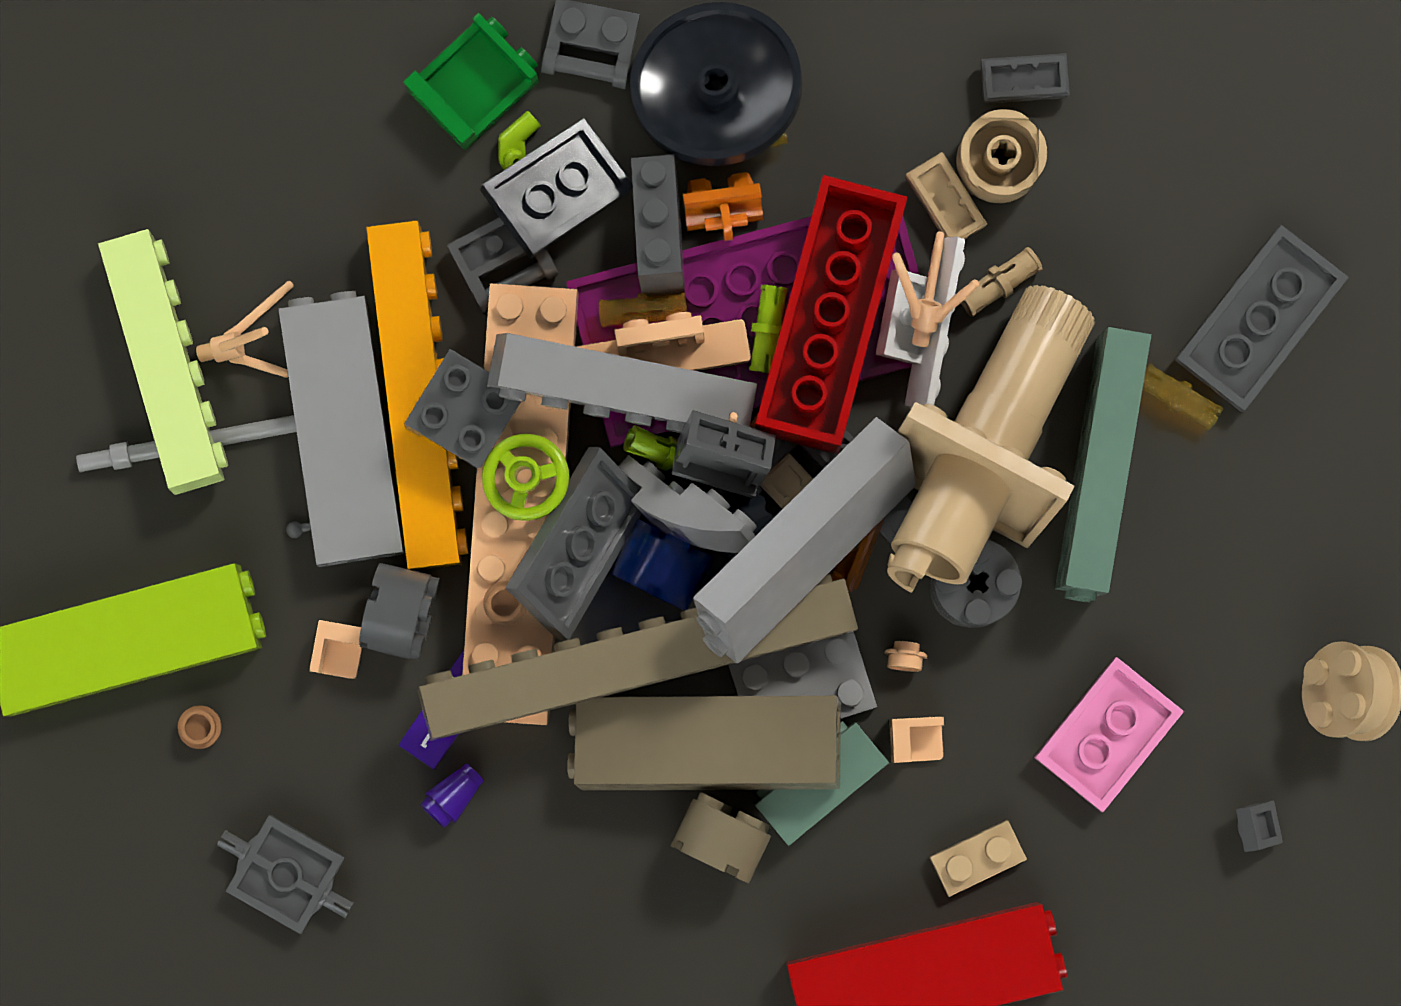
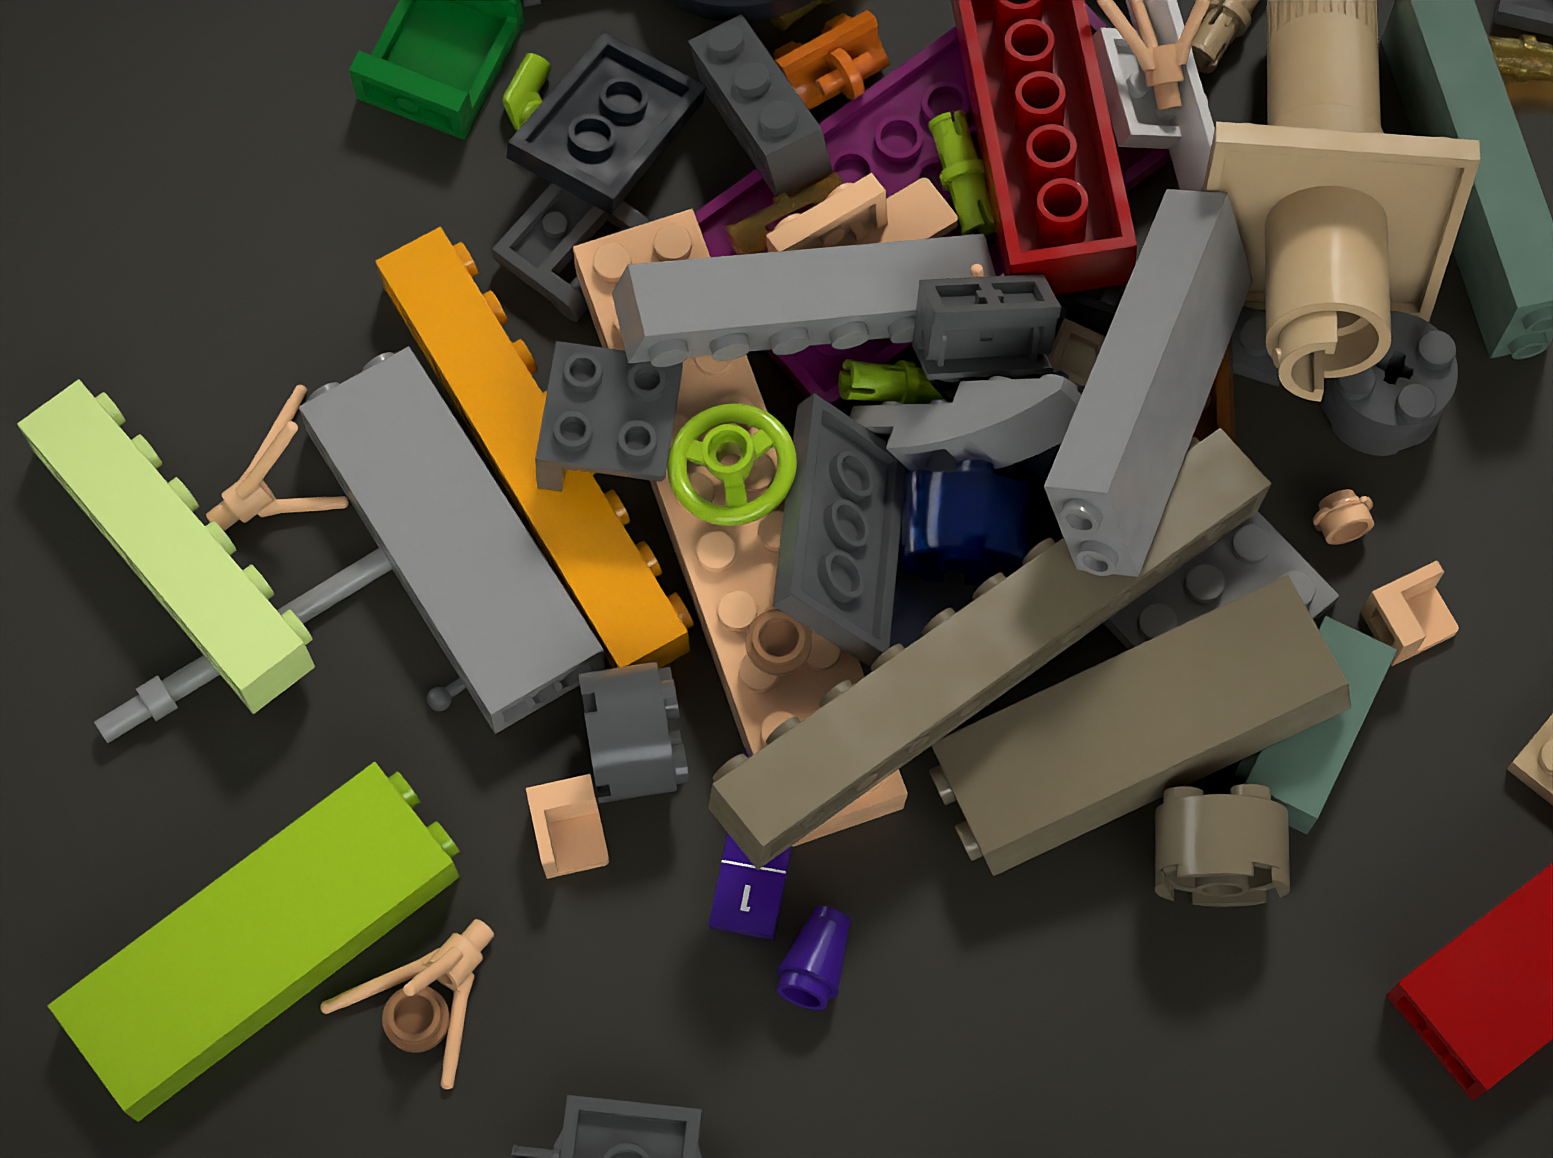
camera: 15 degrees left, 15 degrees down
(232, 703) = (451, 966): none -> light nougat plant

